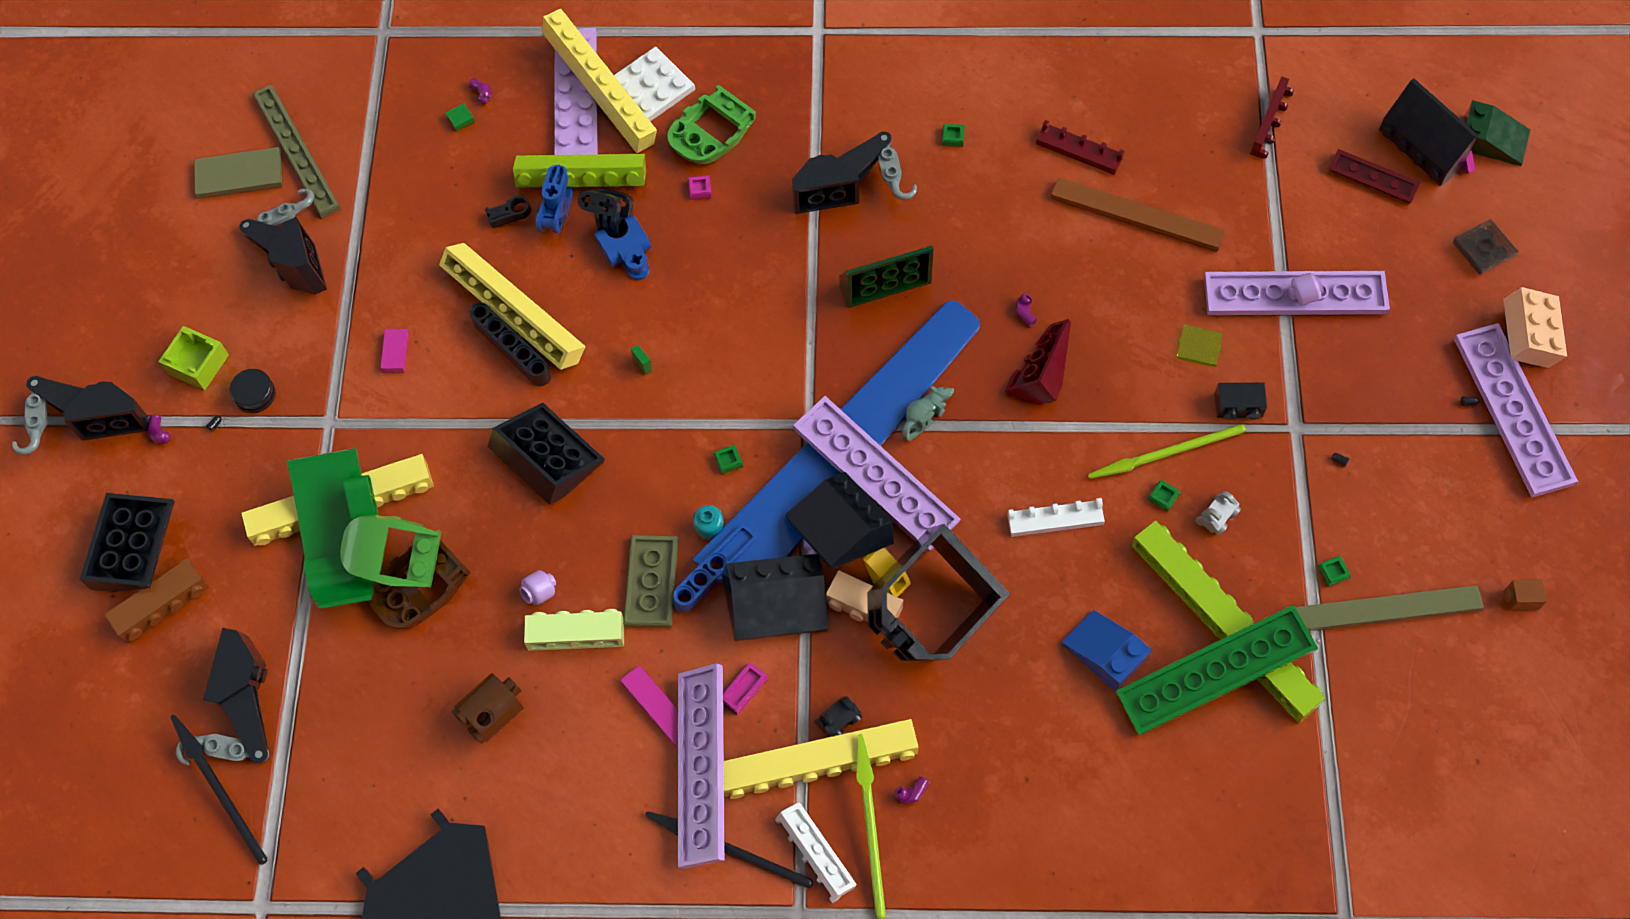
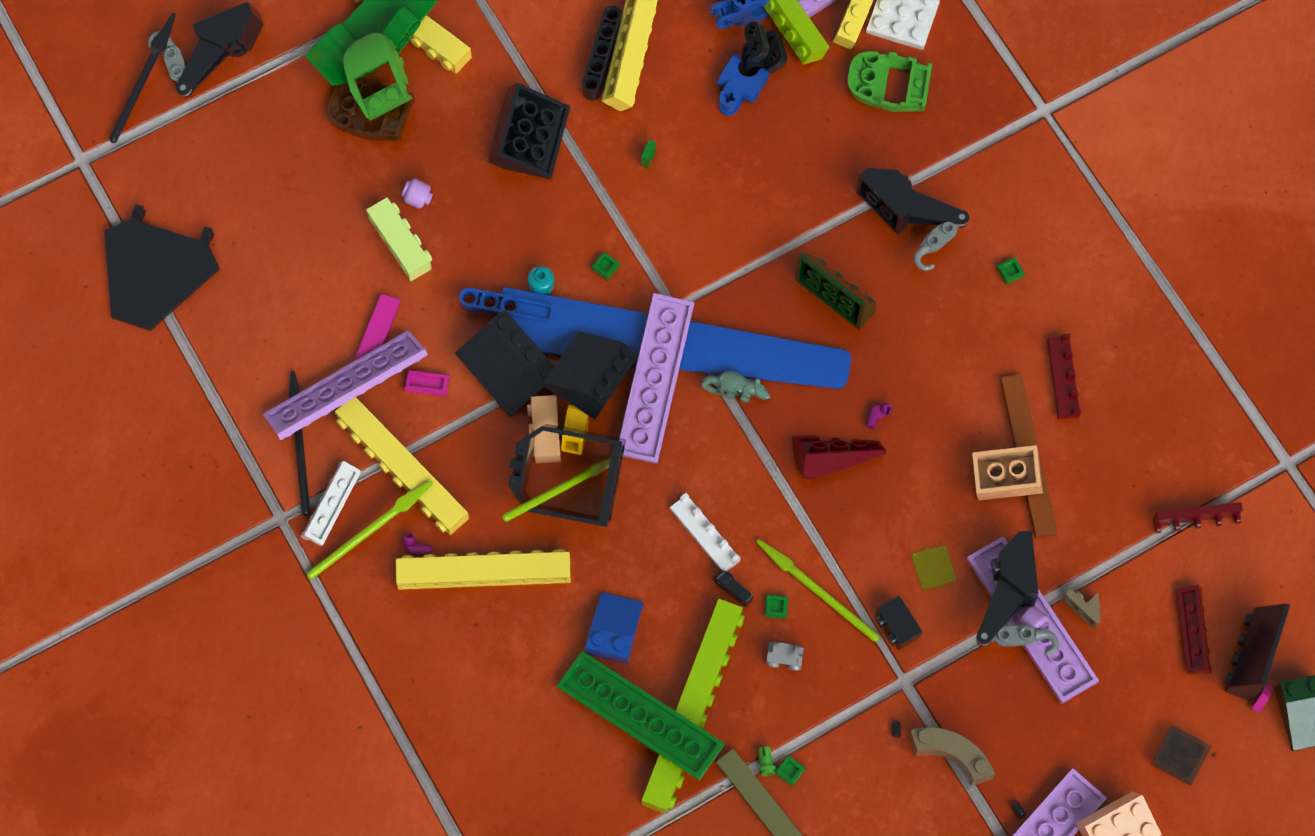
camera: 55 degrees right, 5 degrees up
(495, 701) = (303, 215): reddish brown cylinder -> none
(651, 581) = (472, 269): olive tile -> none
(699, 187) = (832, 106): dark pink tile -> none
(837, 716) = (442, 461): black piece -> none
(942, 621) = (594, 470): none -> lime piece
(976, 741) = (483, 570): none -> light yellow brick
(1121, 523) = (732, 587): none -> black piece
(1150, 233) = (1007, 472): none -> light nougat brick
(1264, 277) = (1015, 588): none -> black slope
(1310, 244) = (1087, 611): none -> dark tan slope
(1315, 586) = (766, 761): none -> bright green pin
(1395, 414) = (955, 748): none -> dark tan brick

